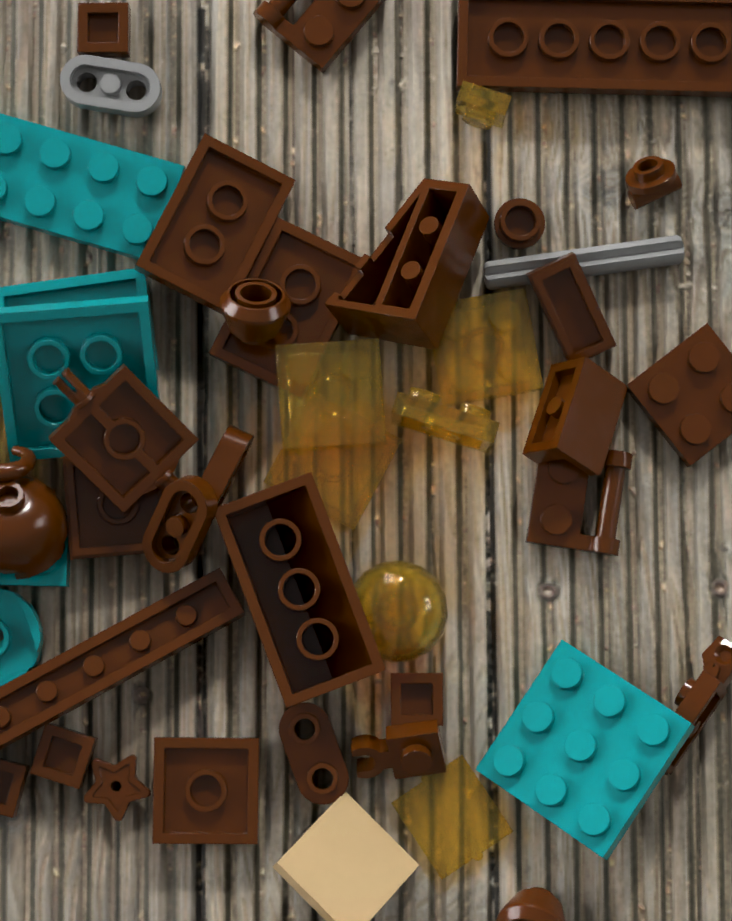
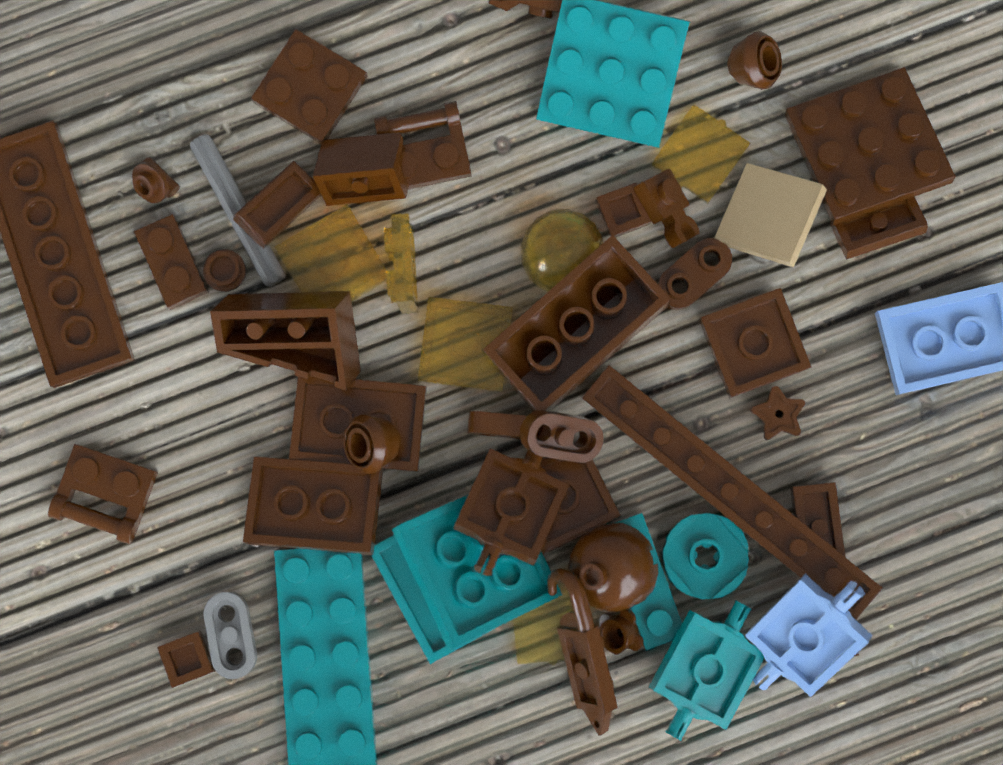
camera: 110 degrees left, 0 degrees up
(63, 755) = (772, 462): reddish brown plate -> none
(330, 394) = (415, 362): clear yellow plate -> none
(482, 106) = (141, 332): clear yellow plate -> none
(552, 169) = (171, 262): none -> reddish brown plate

